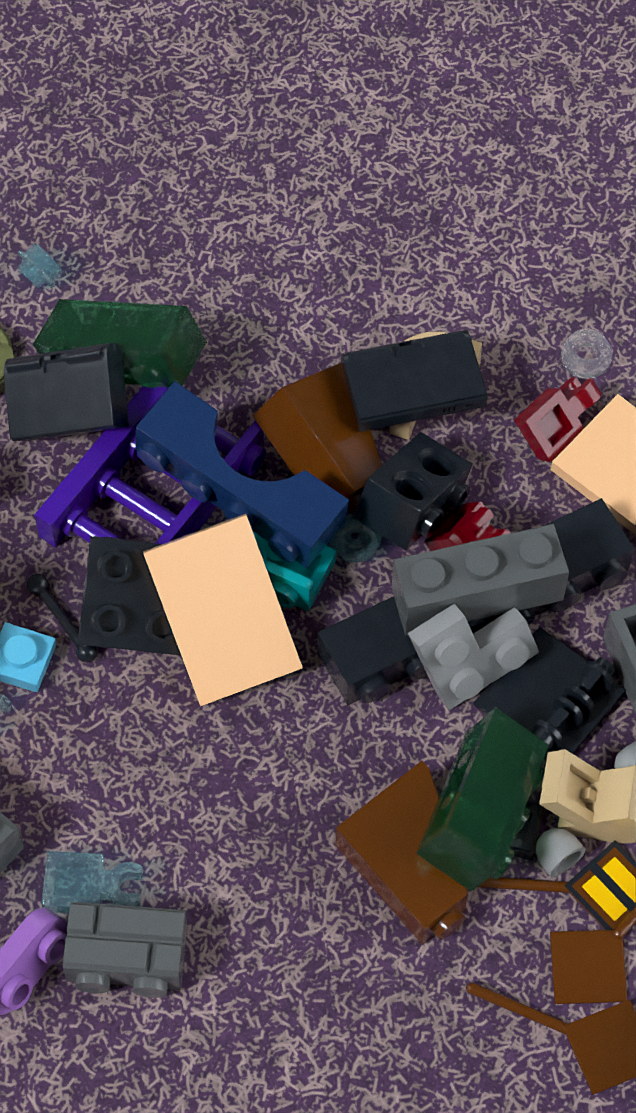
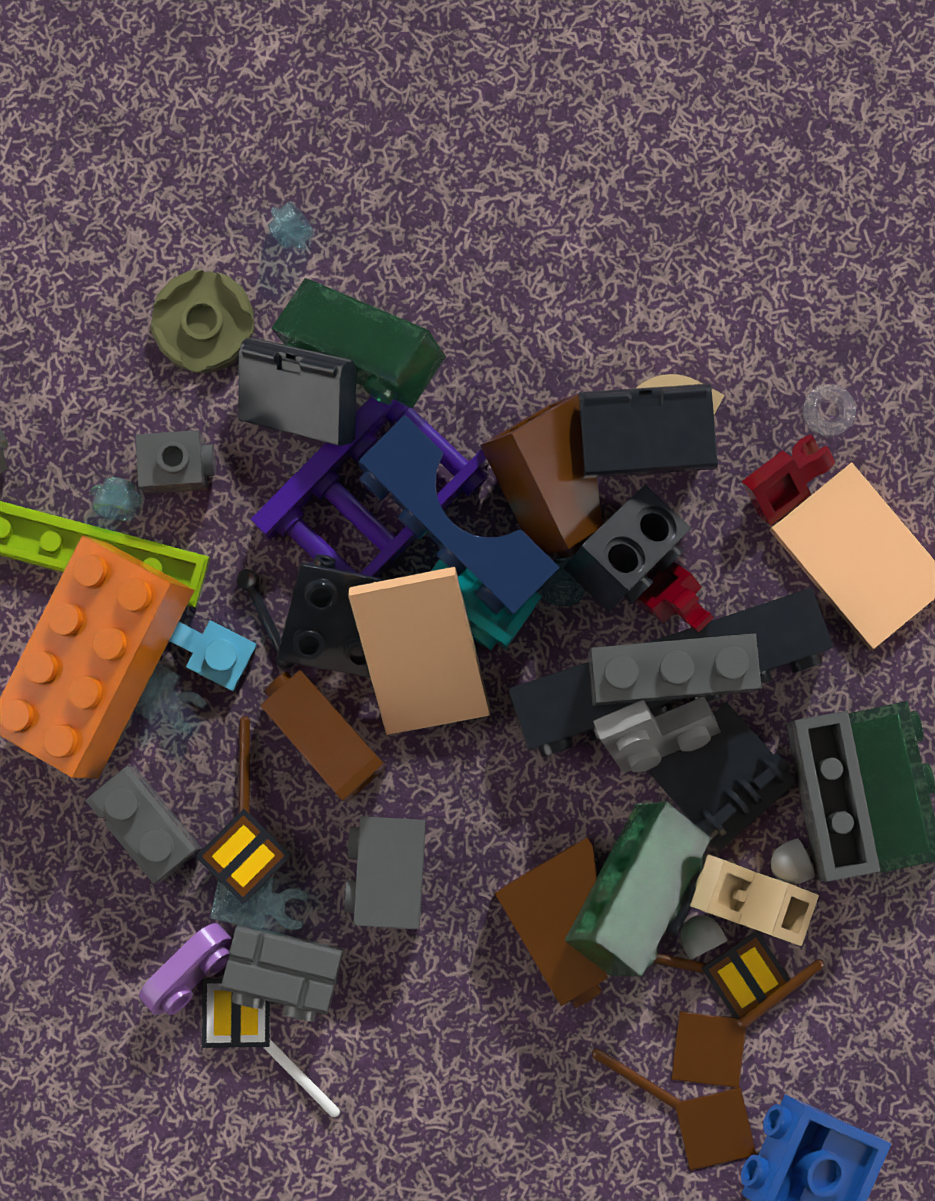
camera: 10 degrees right, 20 degrees up
(68, 834) = (243, 852): none -> piece
(89, 1017) = (242, 1026): none -> piece
(139, 709) = (321, 734): none -> reddish brown slope
(223, 829) = (387, 872): none -> dark grey brick

